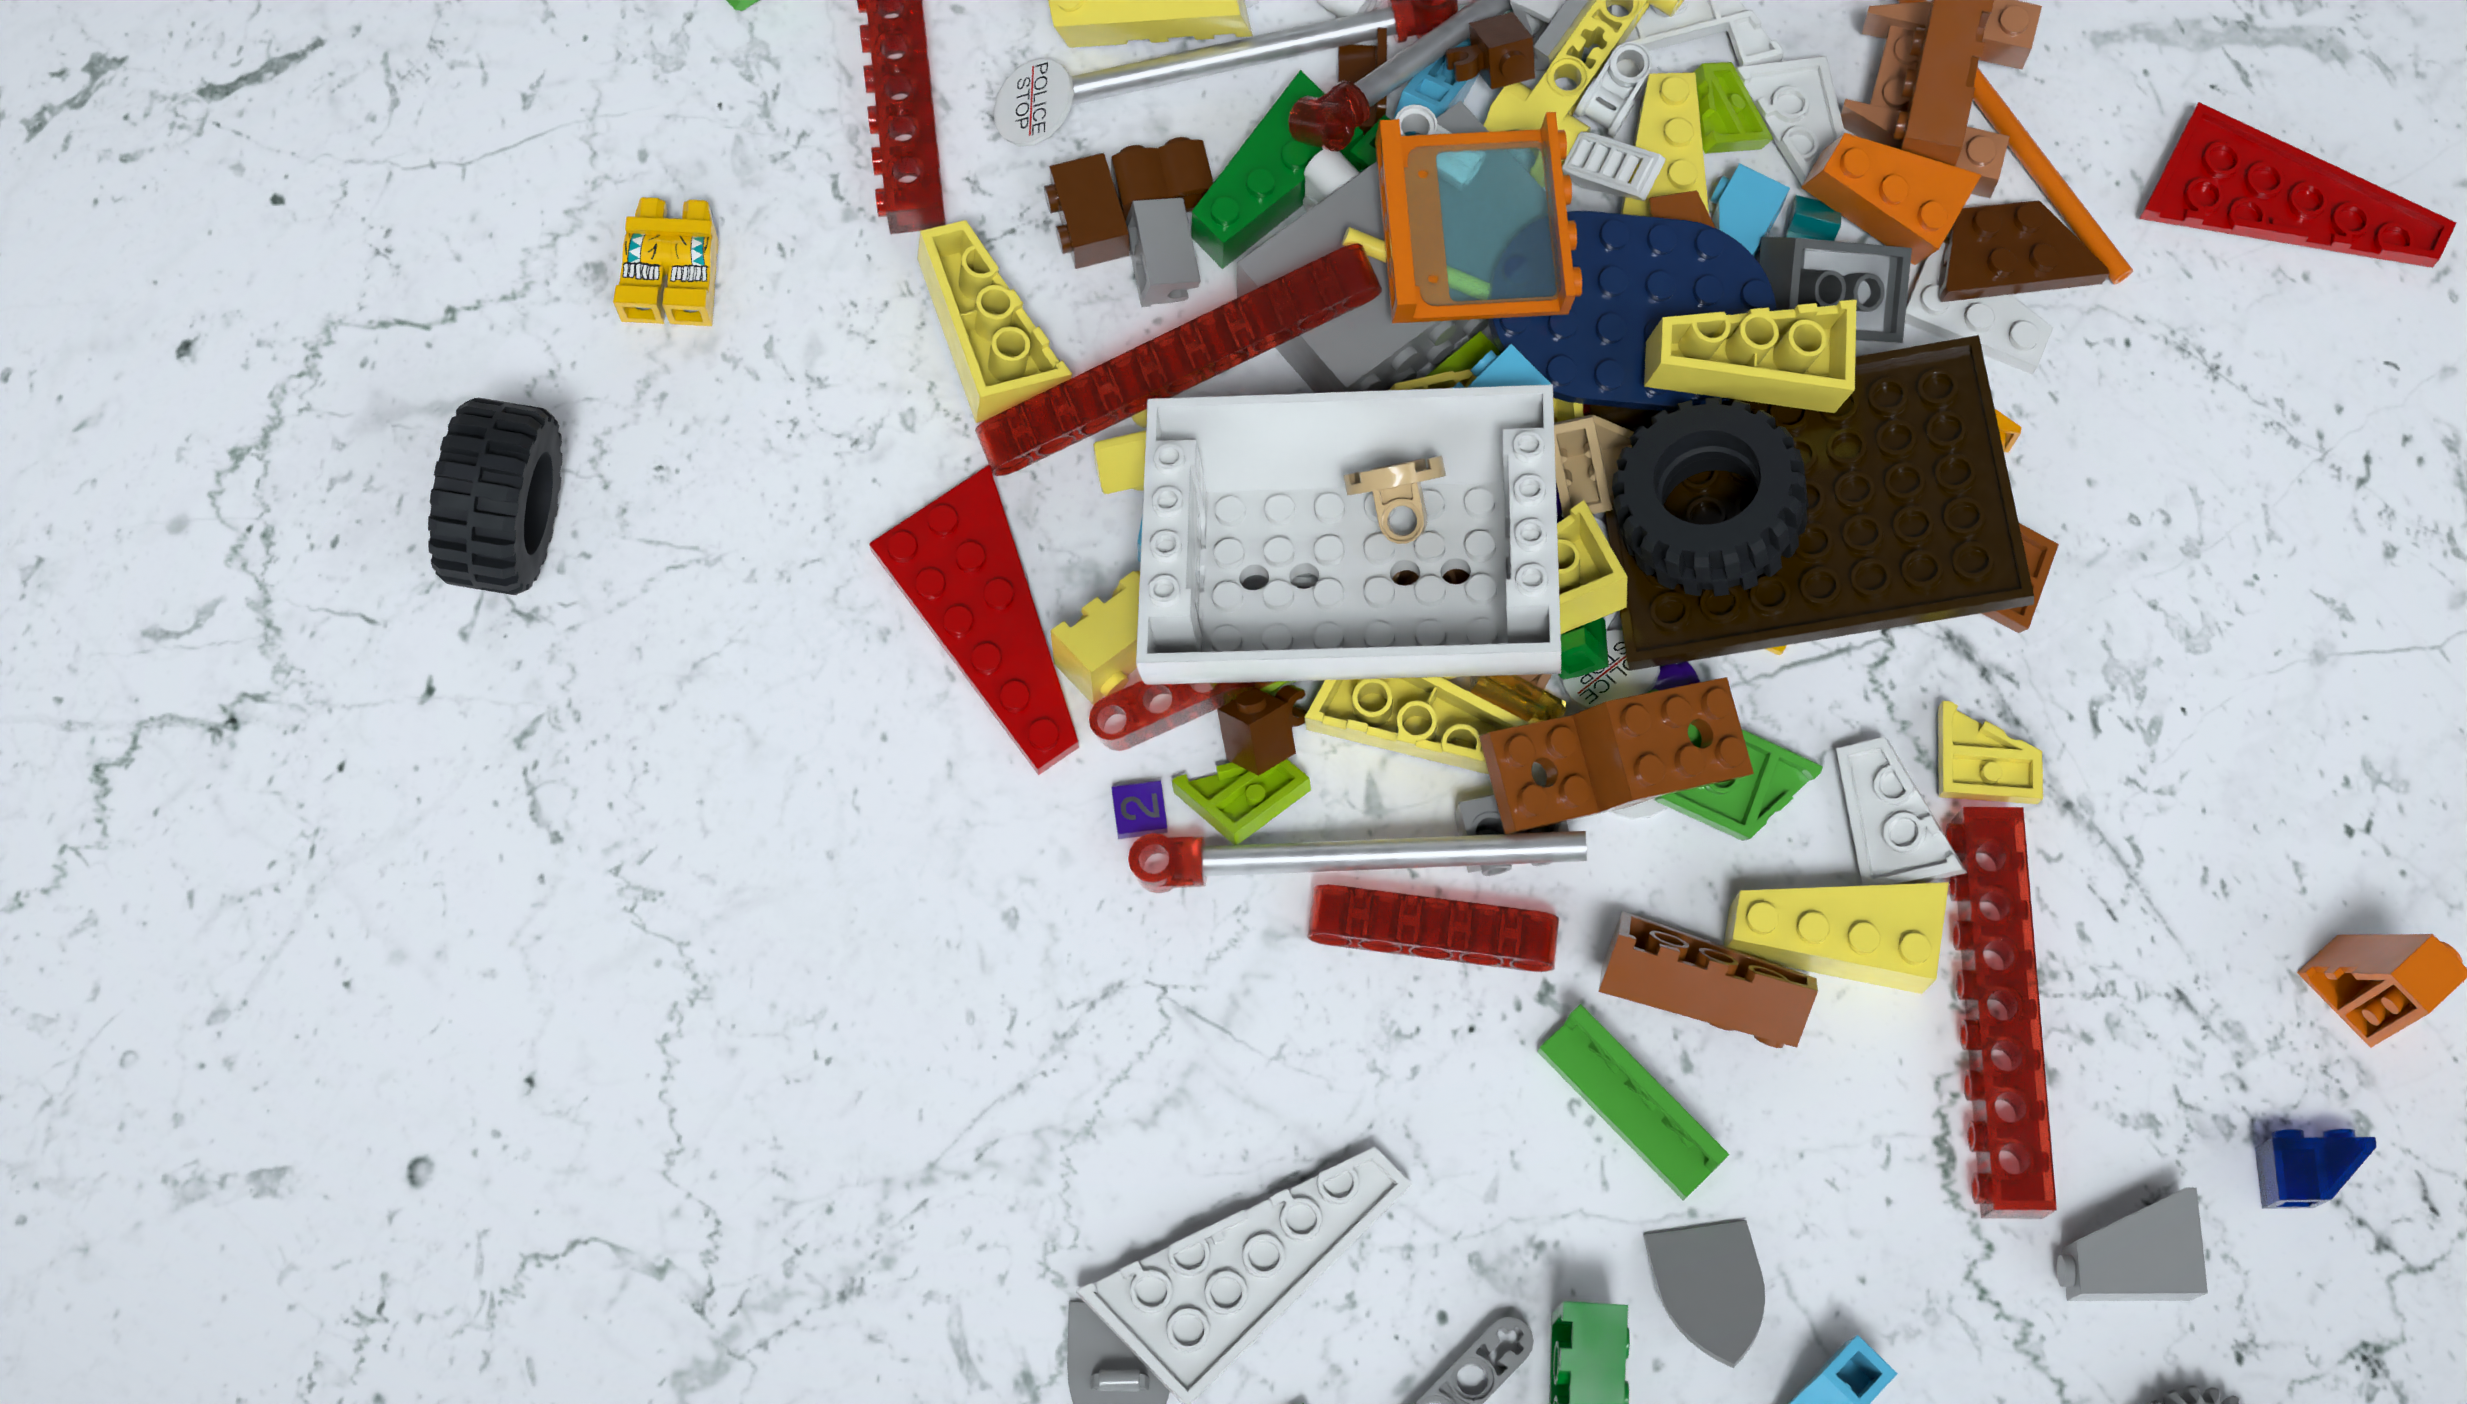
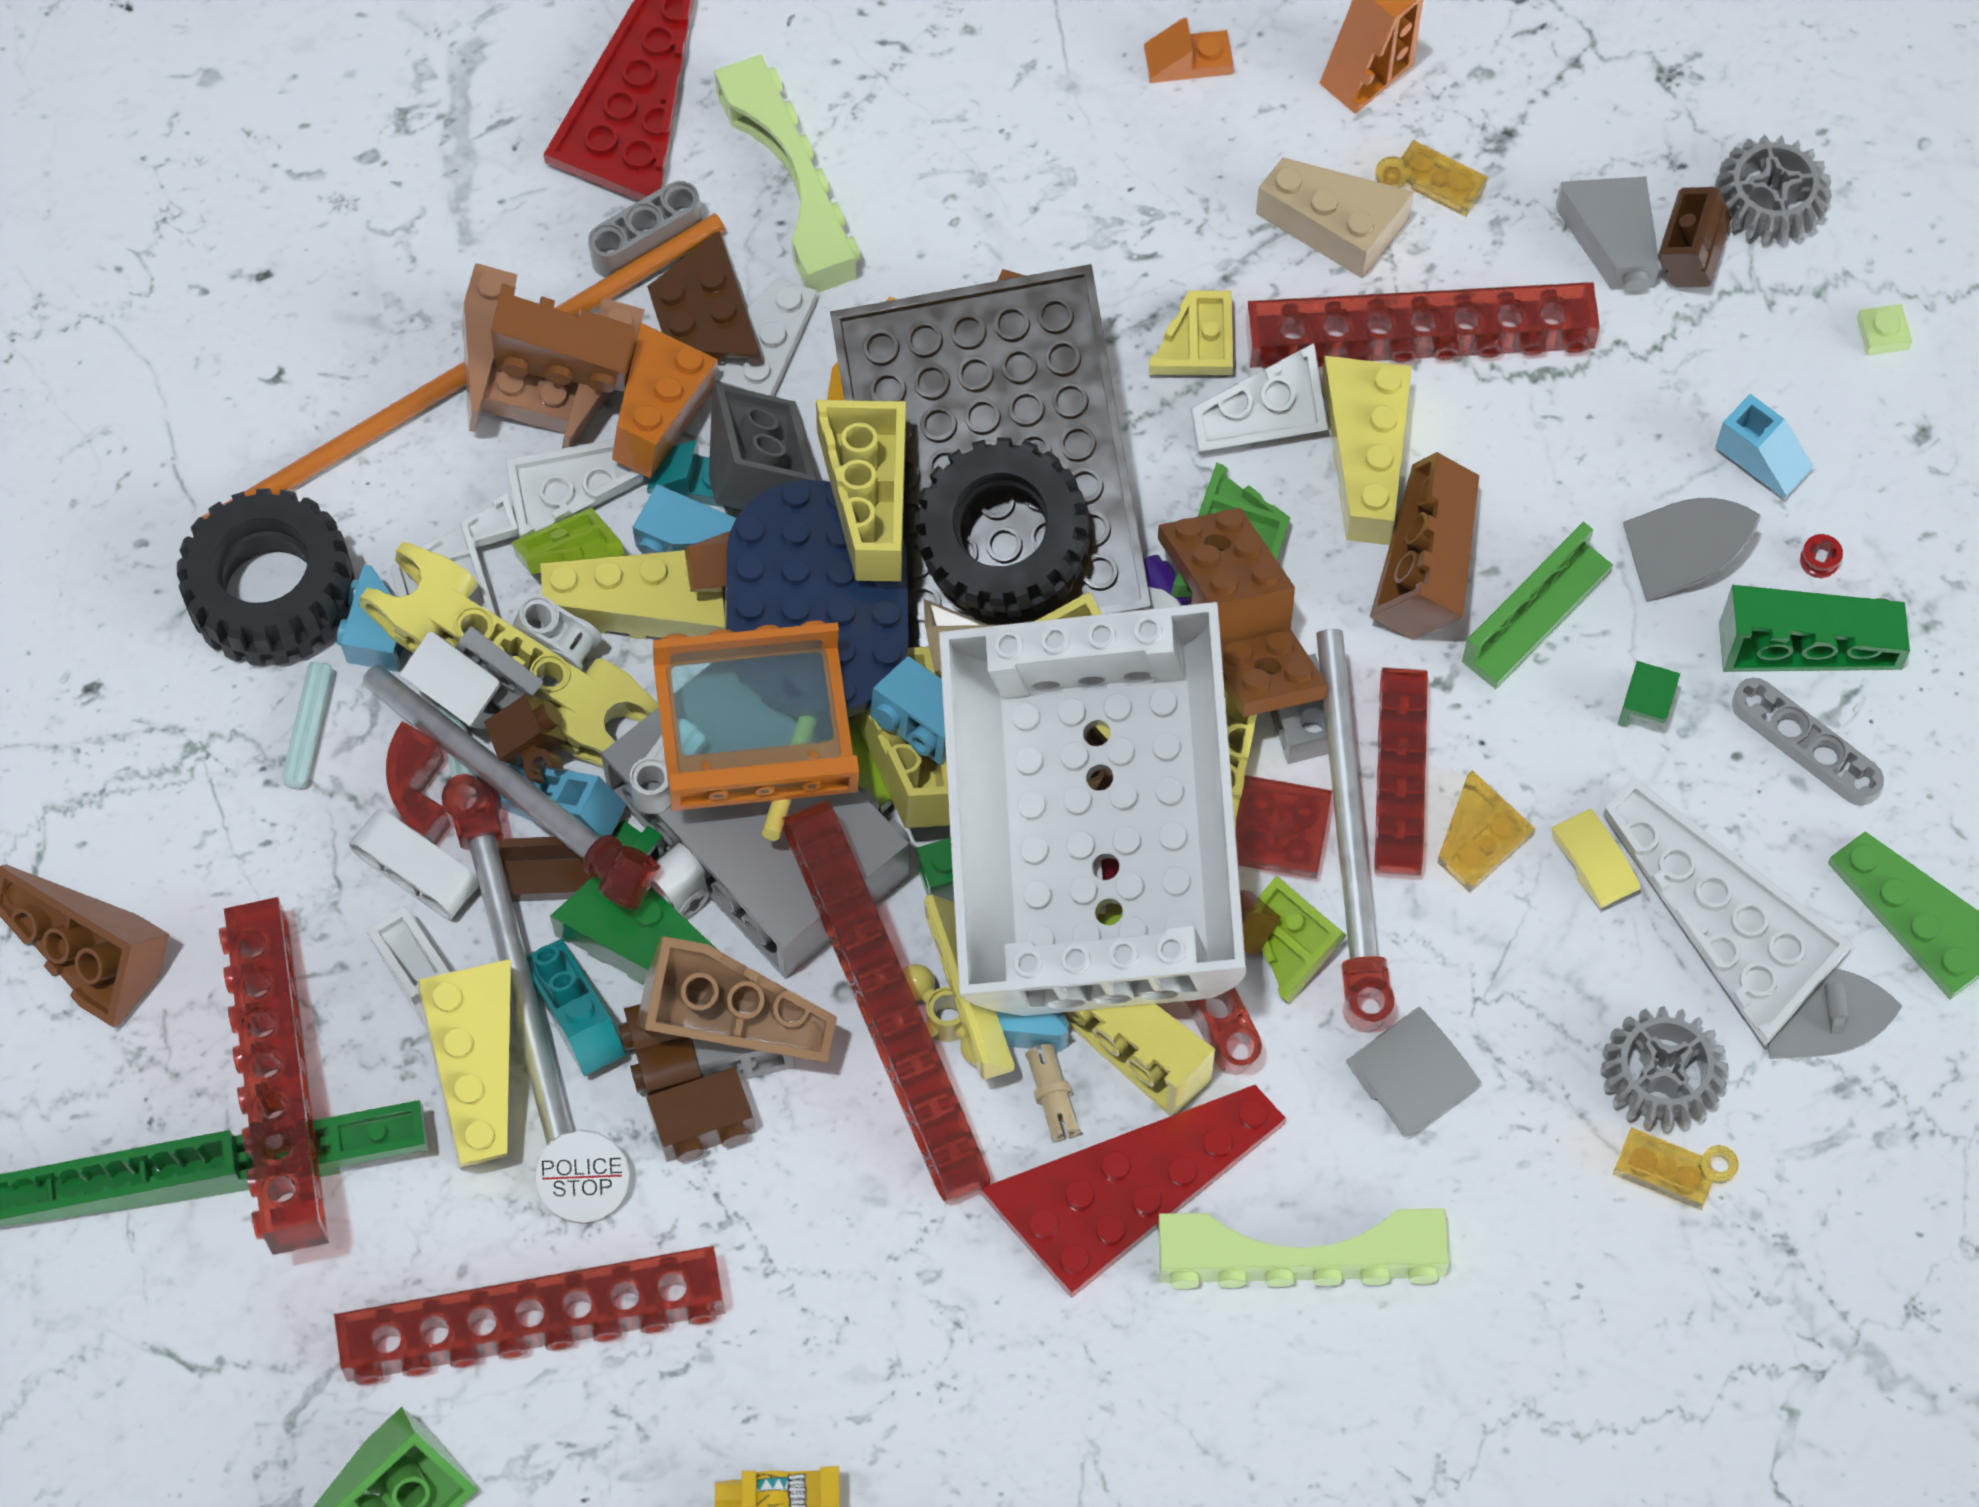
camera: 90 degrees left, 5 degrees down
(900, 673) = (1204, 1250): none -> yellowish green arch
(942, 1169) = (1672, 1168): none -> clear yellow hinge
(986, 329) = (839, 1198): light yellow wedge -> none
(1076, 1161) = (1645, 1037): none -> light grey gear
(1079, 906) = (1413, 1071): none -> light grey slope
(1087, 542) = (1052, 1092): none -> tan pin
(1139, 809) = (1313, 1028): dark purple tile -> none
(1179, 202) = (719, 1000): none -> medium nougat wedge
(1210, 101) = (574, 1008): none -> teal slope
(1317, 1132) = (1597, 858): none -> light yellow slope
(1357, 1011) = (1481, 834): none -> clear yellow wing
(1371, 790) = (1281, 826): none -> clear red tile
(1396, 487) = (1025, 774): tan tile -> none
(1511, 1213) = (1649, 693): none -> green panel
(1609, 164) = (630, 661): white slope -> none
(2096, 368) = (756, 108): none -> yellowish green arch
(2109, 178) = (654, 212): none -> light grey beam
(2126, 1346) = (1694, 237): none -> reddish brown brick
(2150, 926) = (1334, 211): none -> tan wedge
(2210, 1049) = (1433, 177): none -> clear yellow hinge
(2308, 1170) = (1529, 106): clear blue slope -> none
(2365, 786) = (1184, 56): none -> orange slope

